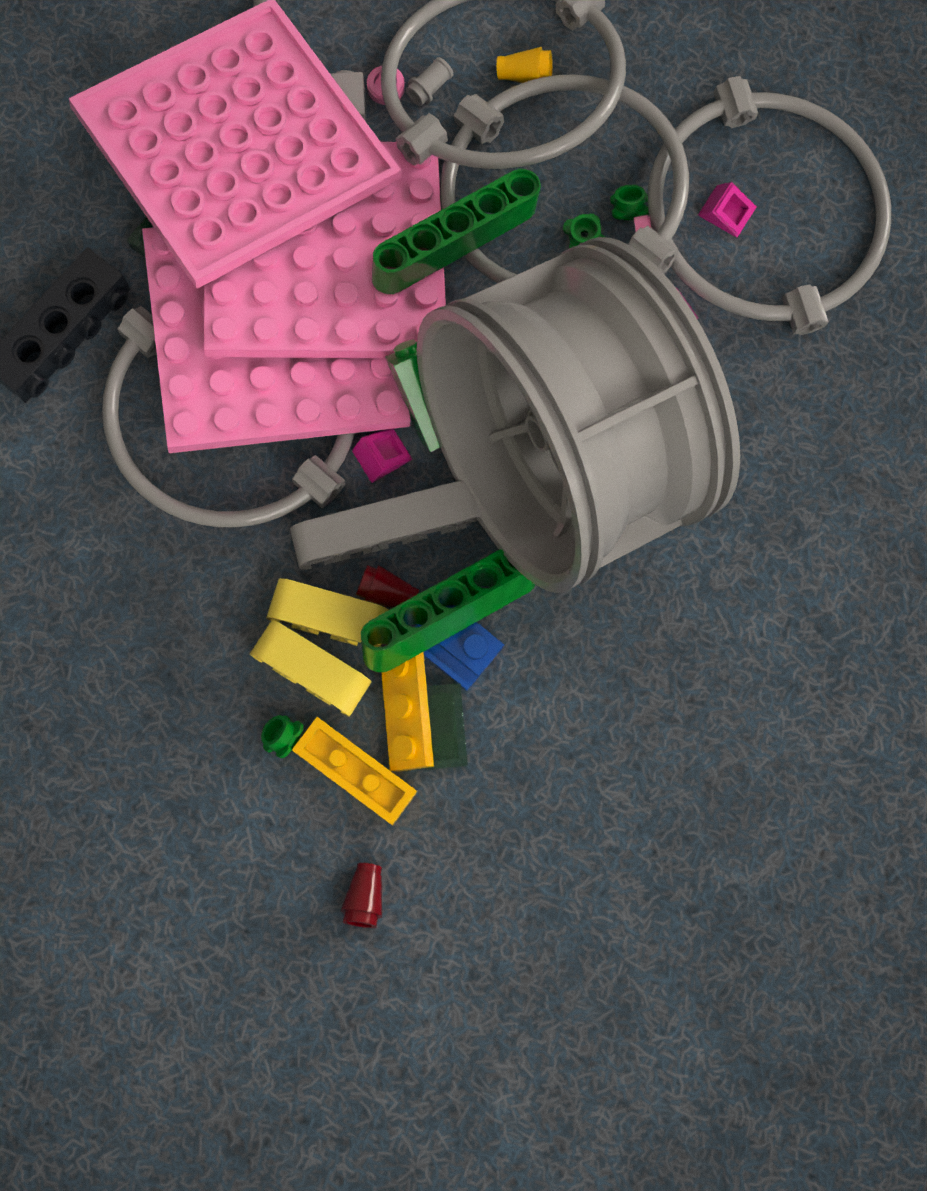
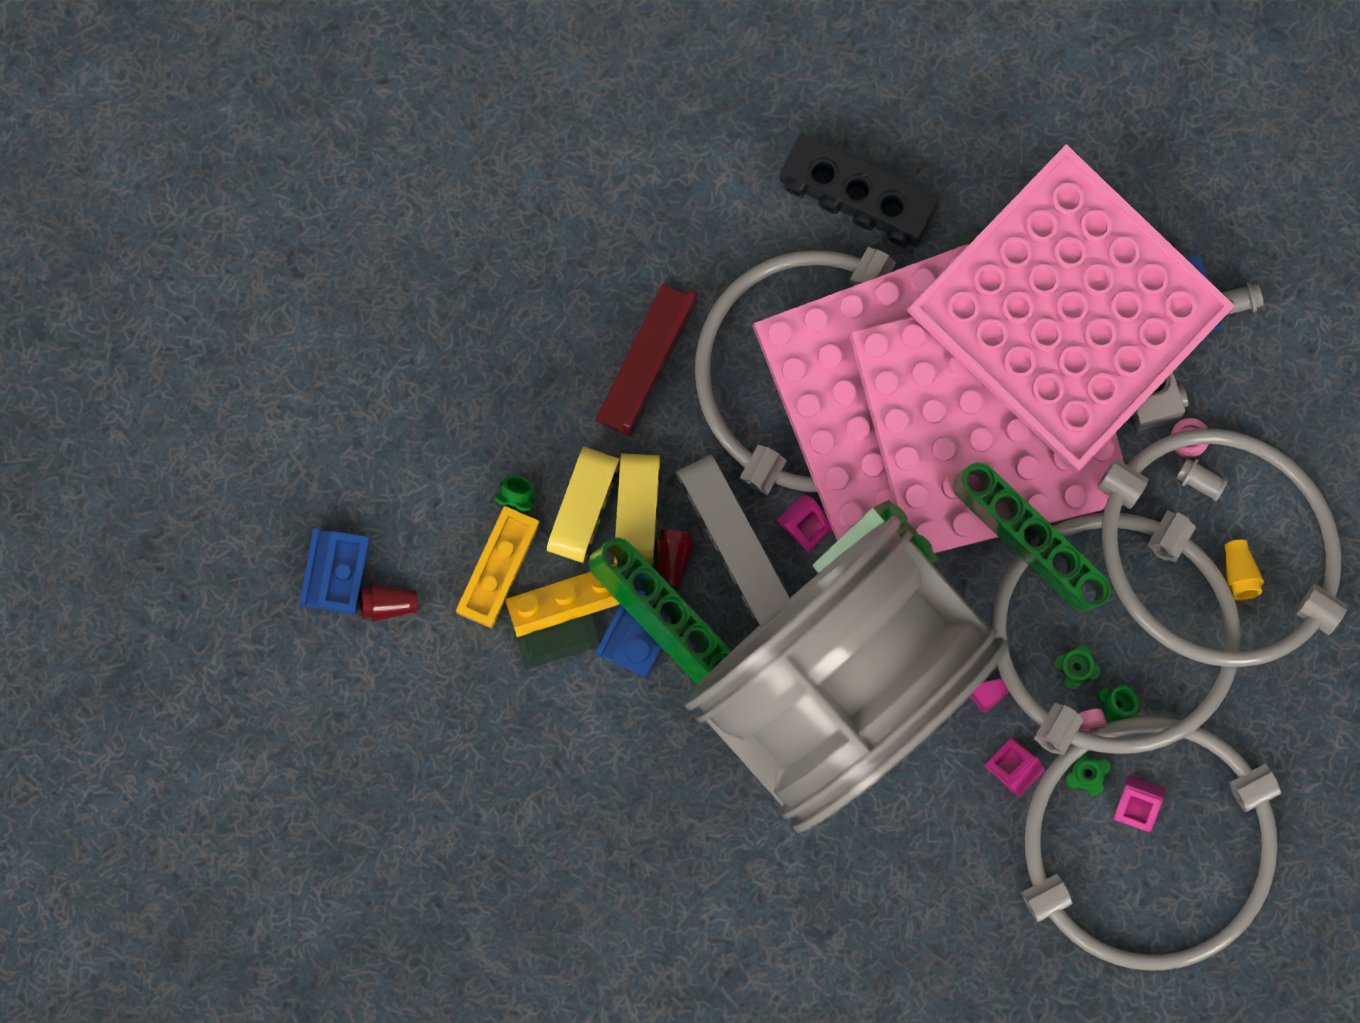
camera: 80 degrees right, 0 degrees up
(174, 571) = (646, 360): none -> dark red panel
(317, 946) = (335, 571): none -> blue plate
(702, 244) = (1092, 784): none -> green plate

